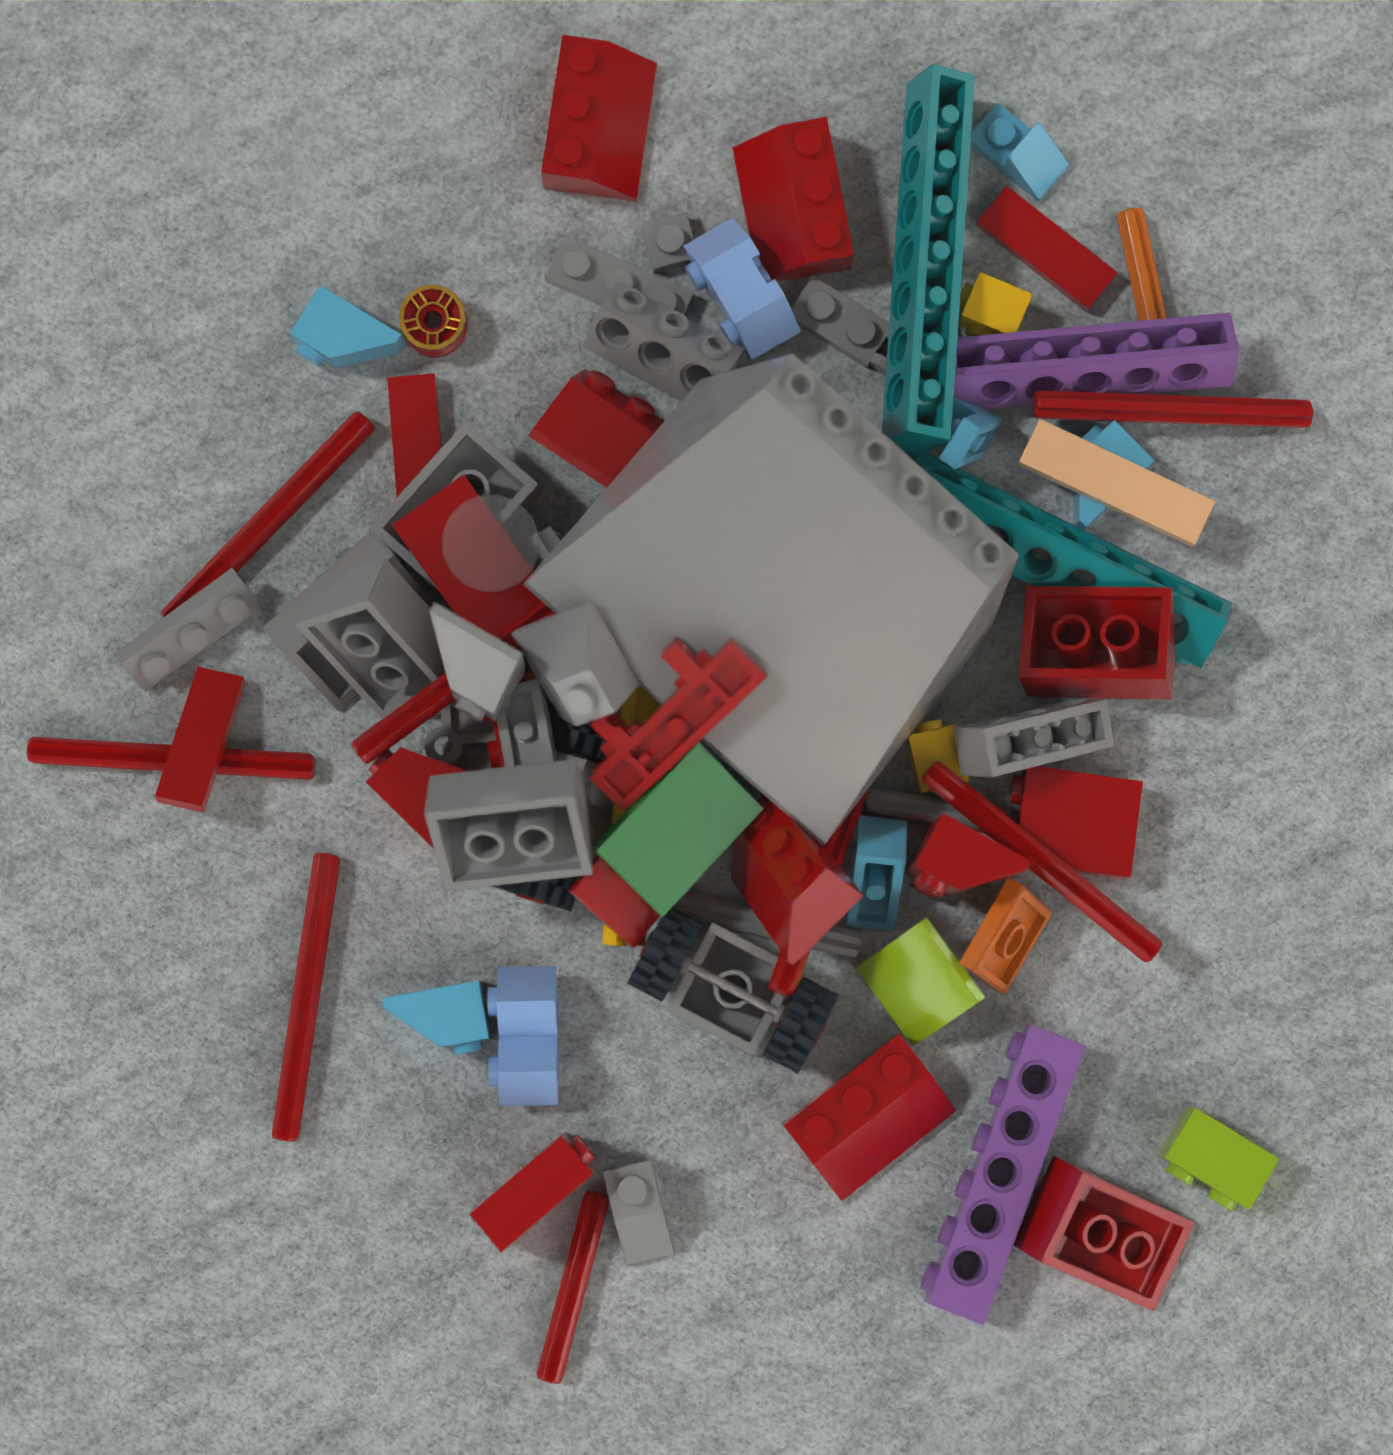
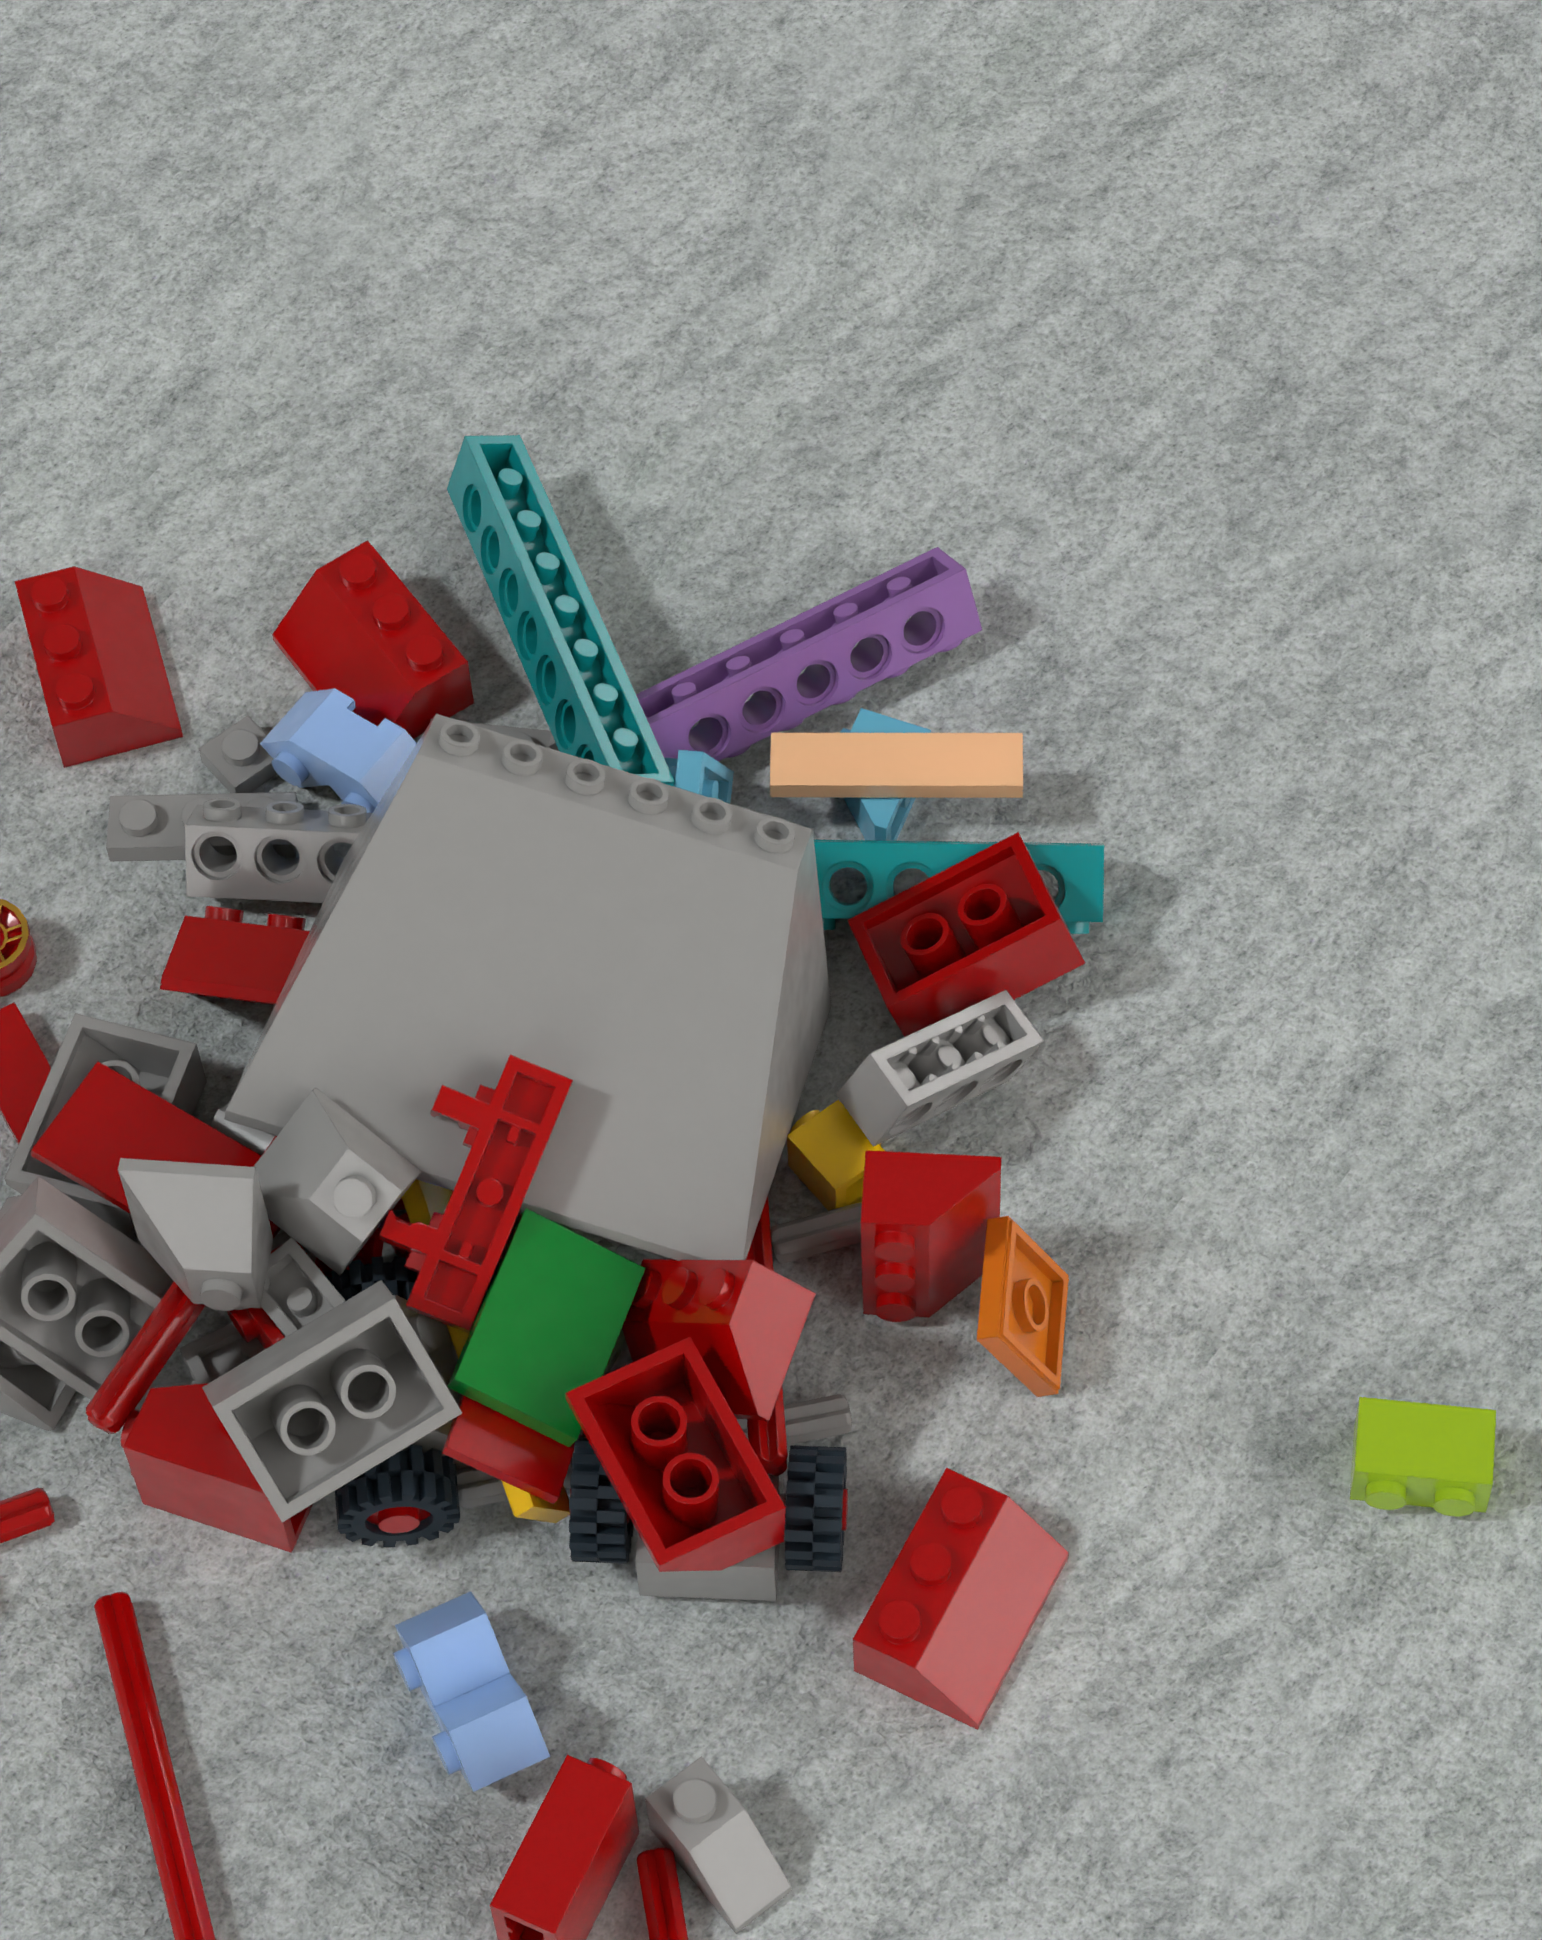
camera: 20 degrees left, 25 degrees down
(446, 1015) = (348, 1718): medium azure slope -> none
(490, 543) = (165, 1114): clear tile -> none
(717, 972) = (680, 1461): none -> red slope
(878, 872) = (837, 1330): medium azure slope -> none
(920, 982) = (942, 1403): lime slope -> none
(974, 1294) = (1199, 1757): medium lavender brick -> none
(991, 306) = (659, 652): yellow brick -> none
(1019, 152) = (615, 507): medium azure slope -> none
(1044, 862) = (1068, 1206): red axle -> none
(1046, 248) = (693, 588): red tile -> none
(1080, 817) = (1057, 1150): red brick -> none
(1103, 1233) = (1327, 1605): red slope -> none
(1141, 264) = (805, 551): orange axle -> none
(1172, 409) = (926, 677): red axle -> none

